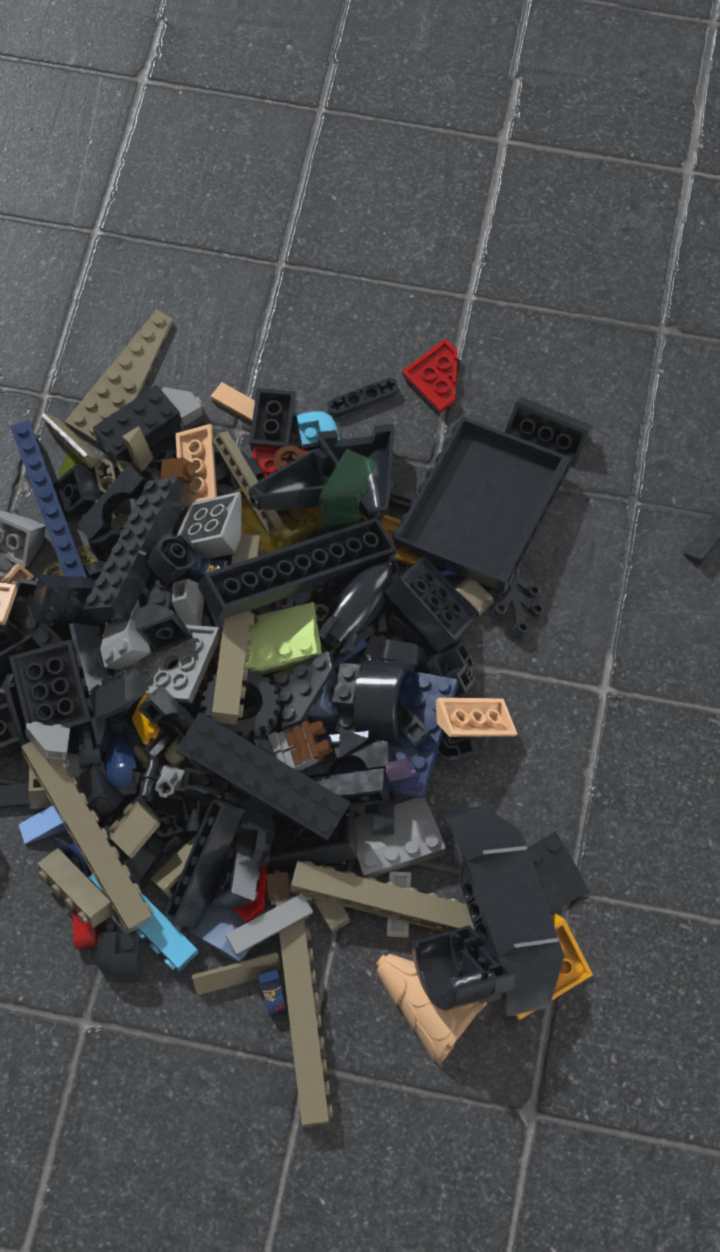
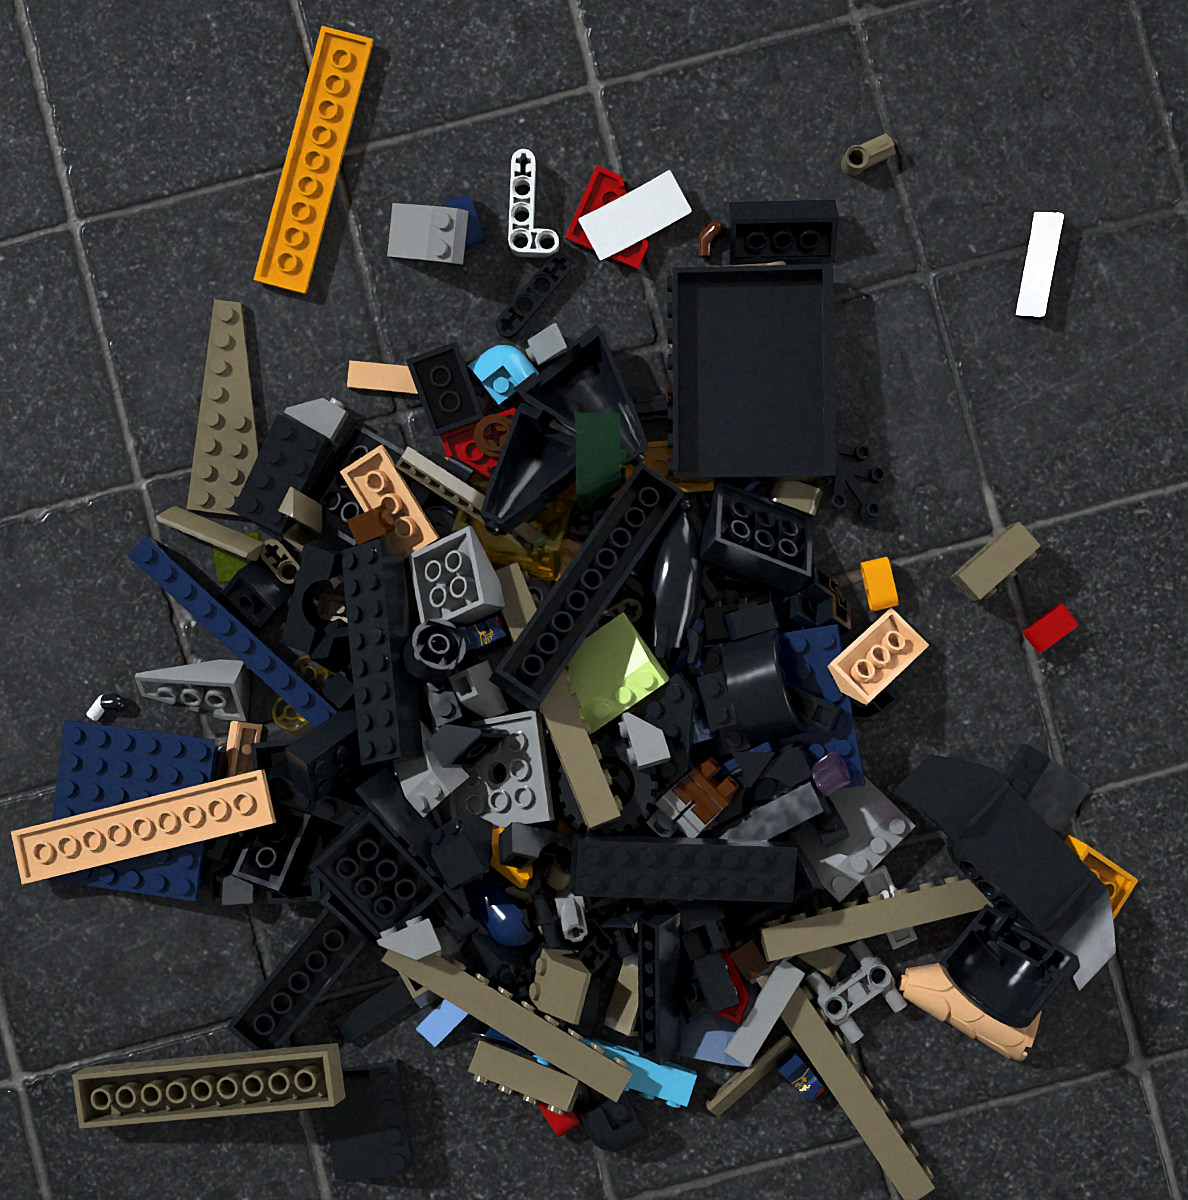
camera: 25 degrees left, 20 degrees up
(264, 260) = (313, 160): none -> light orange plate
(282, 685) = (645, 741): none -> light grey slope
(315, 328) = (427, 233): none -> light grey slope
(342, 334) = (474, 232): none -> dark blue beam
(344, 949) = (855, 990): none -> light grey piece
(354, 425) = (546, 346): none -> light grey slope
(386, 340) = (527, 204): none -> white beam
(454, 377) = (635, 215): none -> white sticker
(502, 410) = (707, 235): none -> reddish brown arm
(502, 679) = (879, 584): none -> light orange beam
(590, 698) = (996, 562): none -> dark tan brick
(610, 765) = (1050, 628): none -> red beam
(628, 409) = (868, 154): none -> dark tan piece

